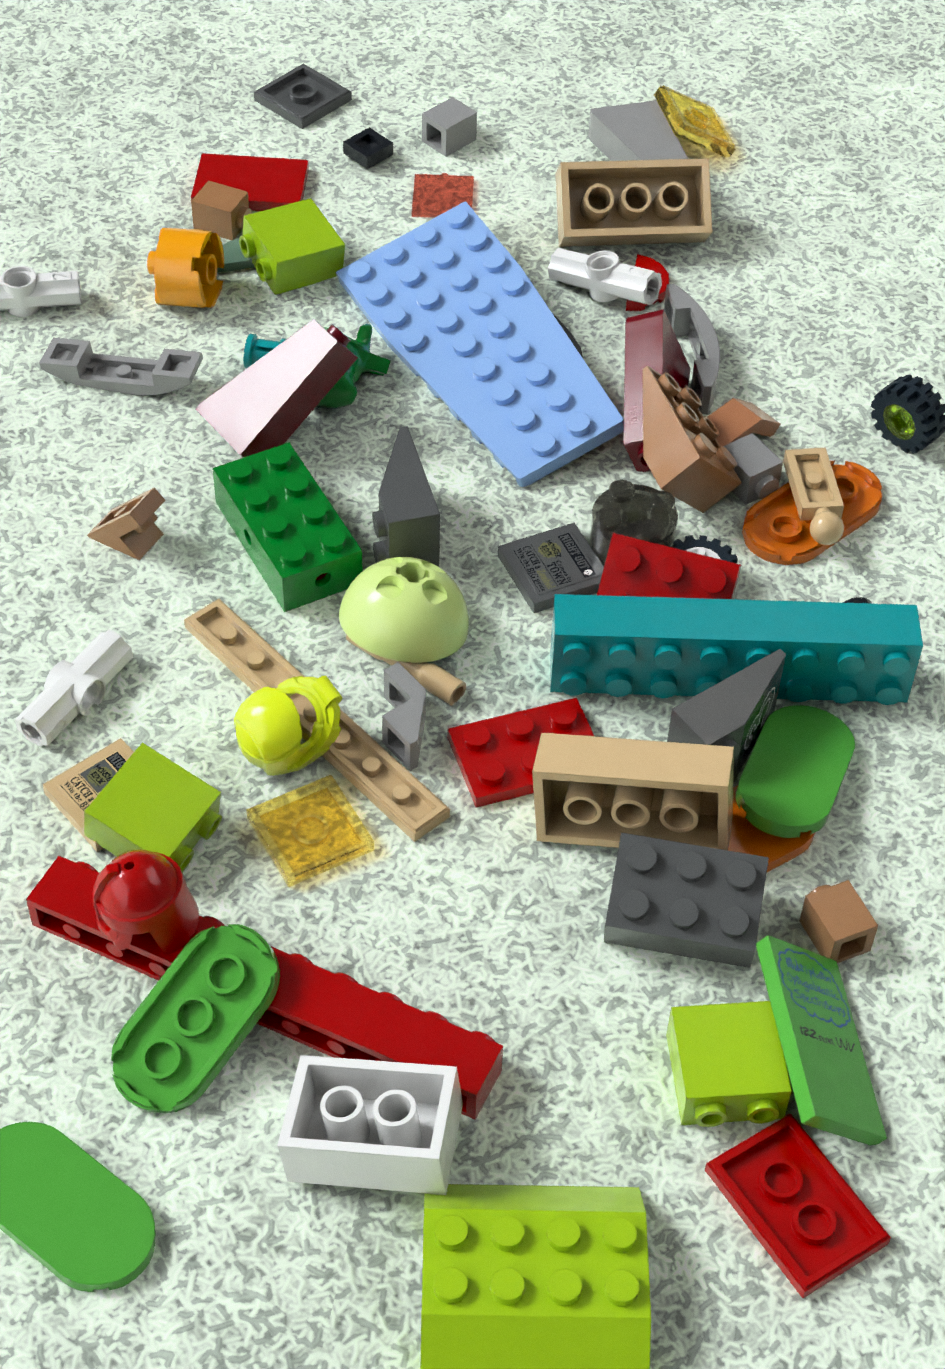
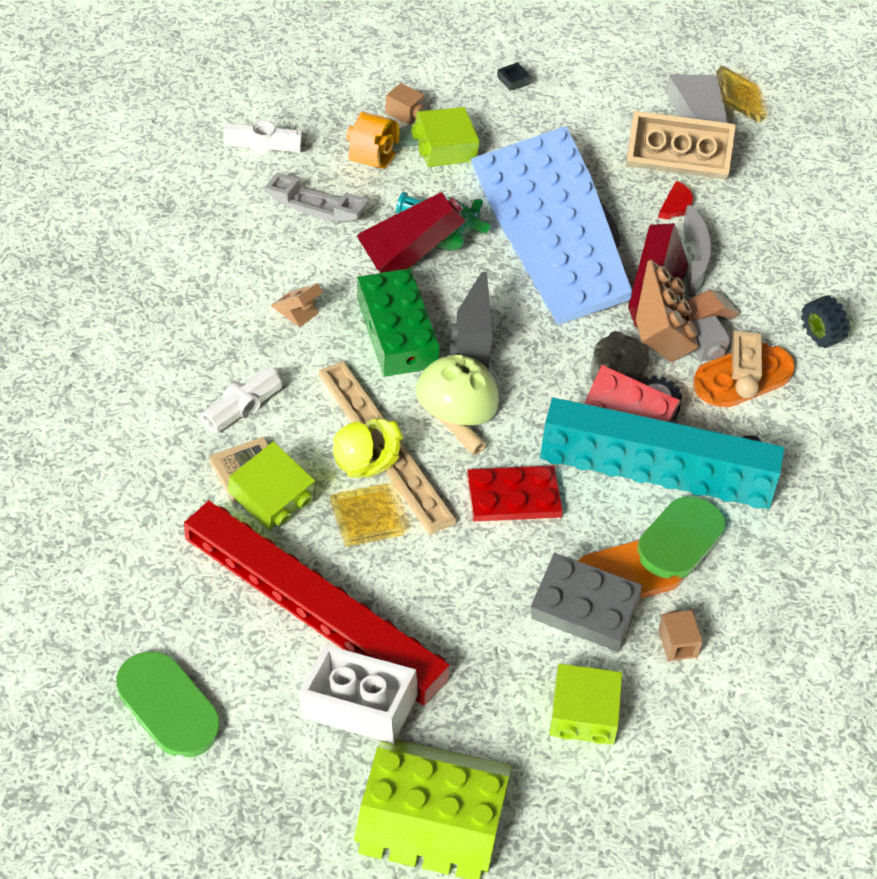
camera: 10 degrees right, 0 degrees up
(144, 895) = (255, 533): red helmet -> none
(195, 1018) = (269, 612): bright green tile -> none
(266, 179) = (440, 88): red tile -> none
(302, 96) = (479, 32): dark grey tile -> none
(405, 723) = (441, 461): light grey slope -> none
(440, 193) = (555, 115): clear red piece -> none
(449, 126) = (572, 70): light grey brick -> none
(552, 564) = (561, 378): dark grey tile -> none
(605, 276) = (648, 192): white piece -> none
(654, 789) = (571, 526): tan brick -> none
(731, 710) = (639, 499): dark grey slope -> none
(797, 1205) = (606, 795): red tile -> none
(820, 1042) = (646, 702): bright green tile -> none

